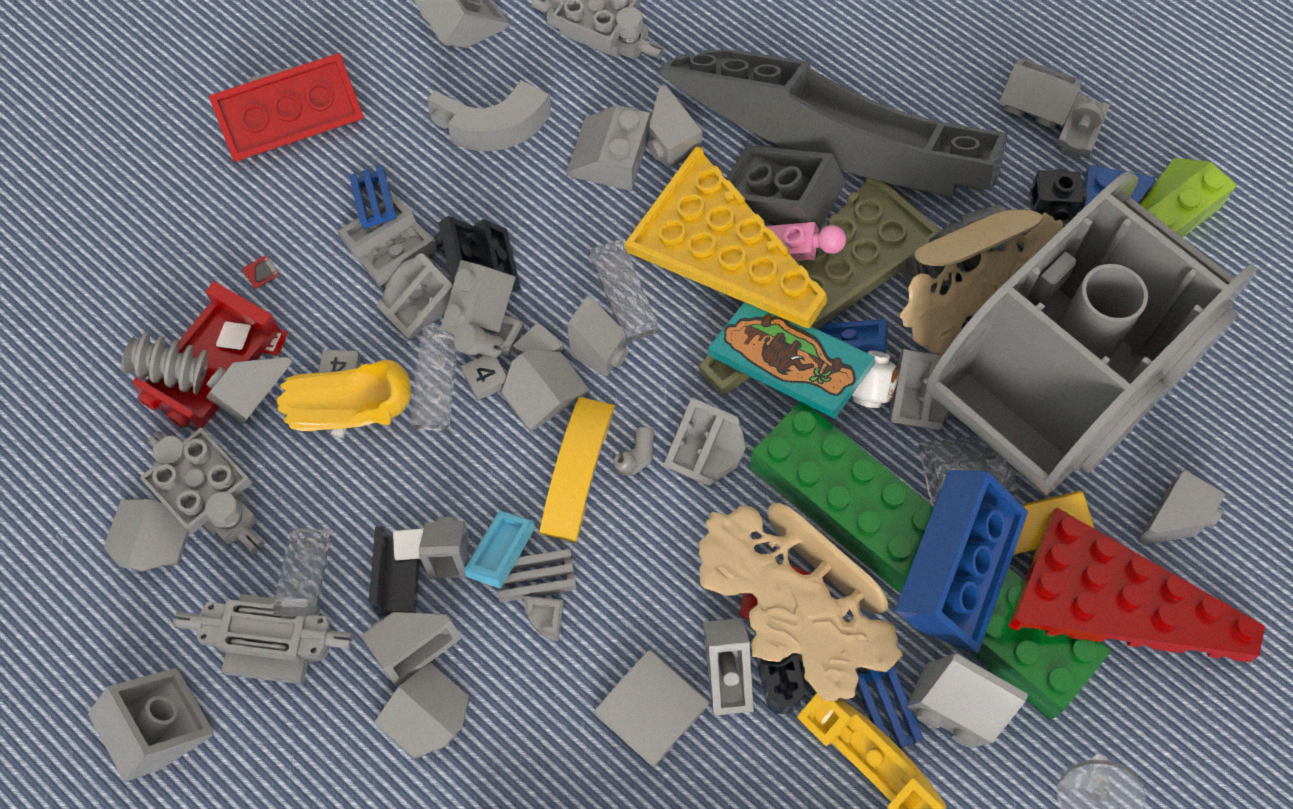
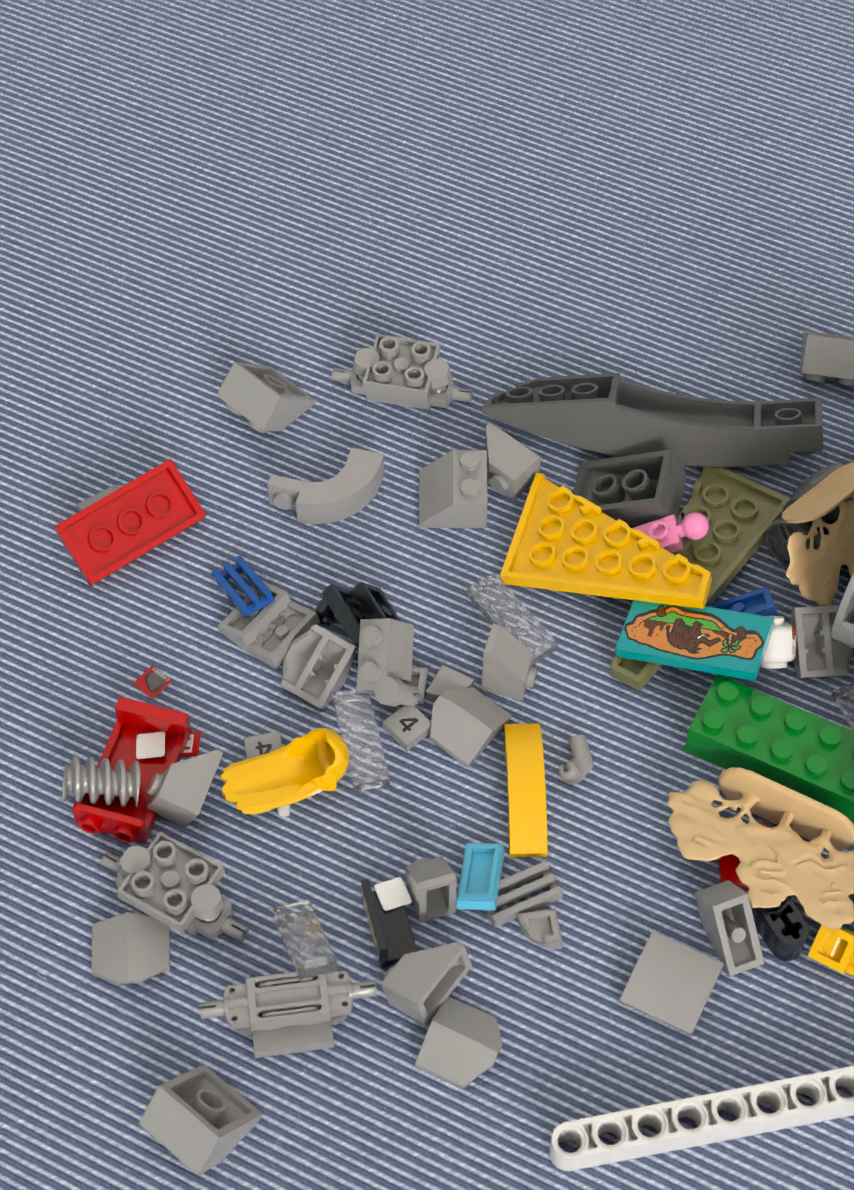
camera: 15 degrees left, 10 degrees down
(706, 443) = (639, 735): light grey slope -> none

